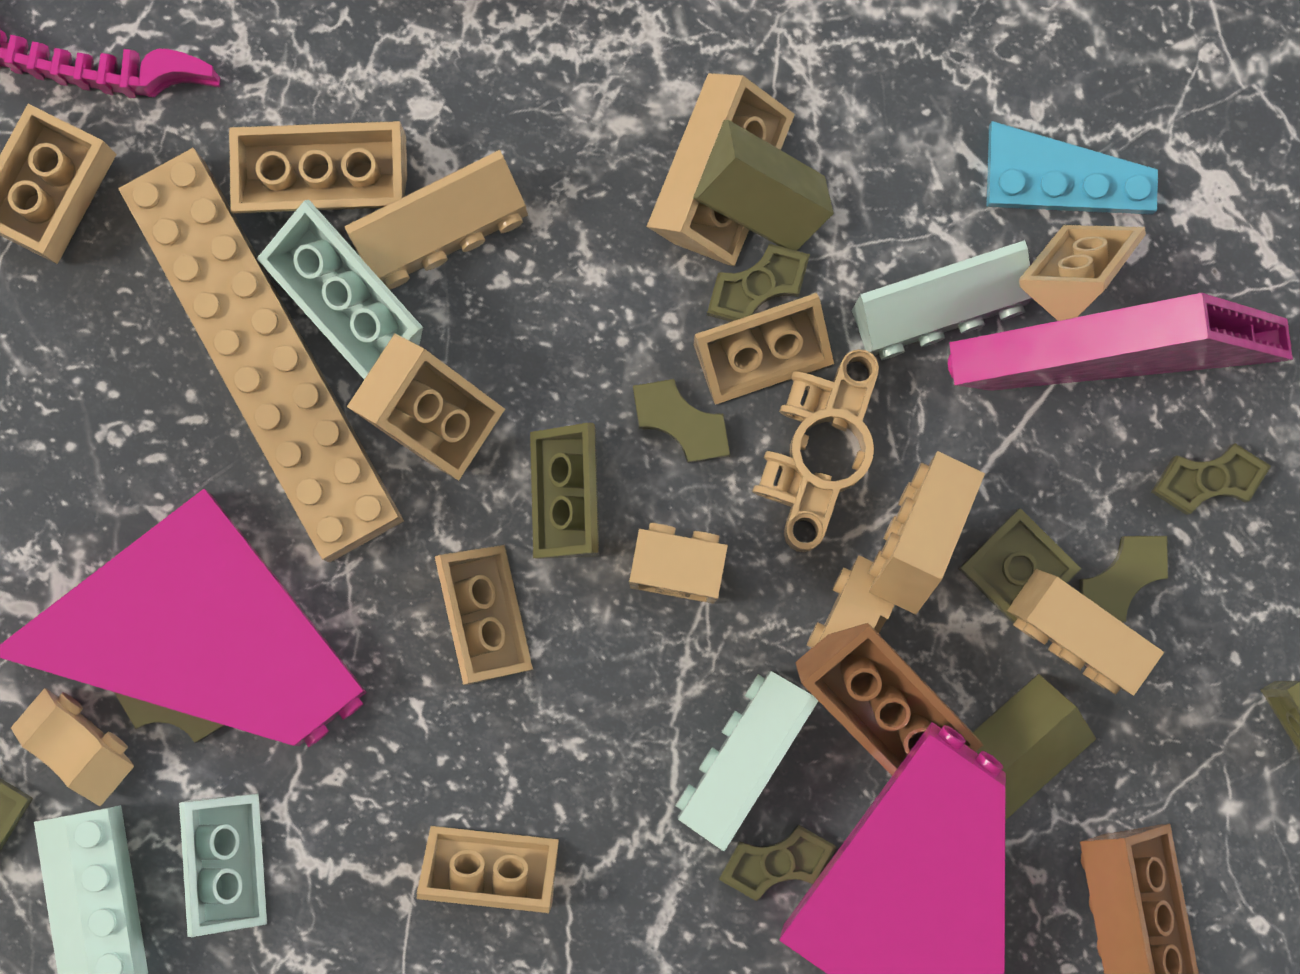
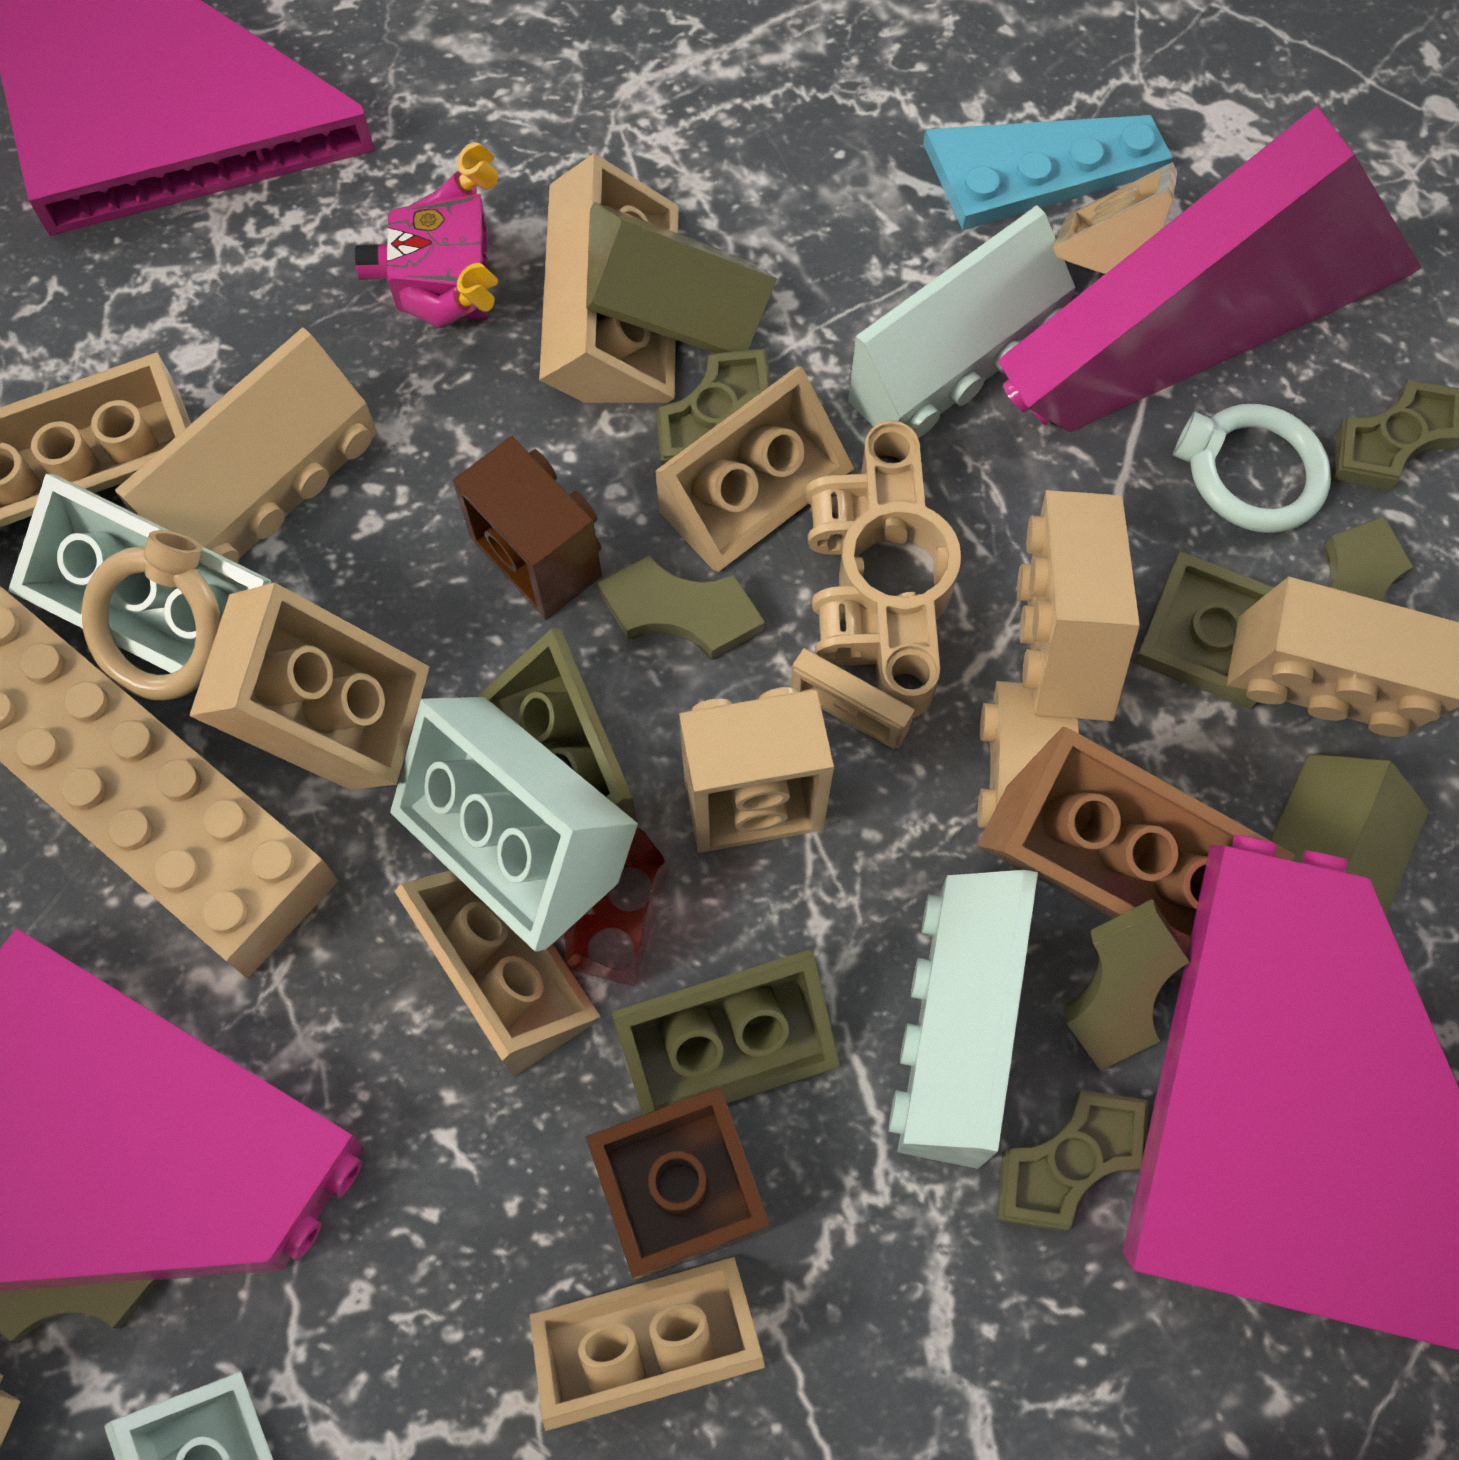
camera: 20 degrees left, 15 degrees down
(364, 298) = (168, 561): none -> tan piece
(519, 532) = (509, 817): none -> light aqua slope
(539, 791) = (677, 1184): none -> reddish brown brick
(559, 607) = (635, 923): none -> clear red piece
(601, 339) = (530, 525): none -> reddish brown brick
(601, 717) = (729, 1033): none -> olive slope
(614, 98) = (439, 248): none -> dark pink torso
(762, 529) = (853, 699): none -> tan tile
(840, 788) = (1134, 962): none -> olive tile
(1072, 436) = (1203, 440): none -> light aqua piece

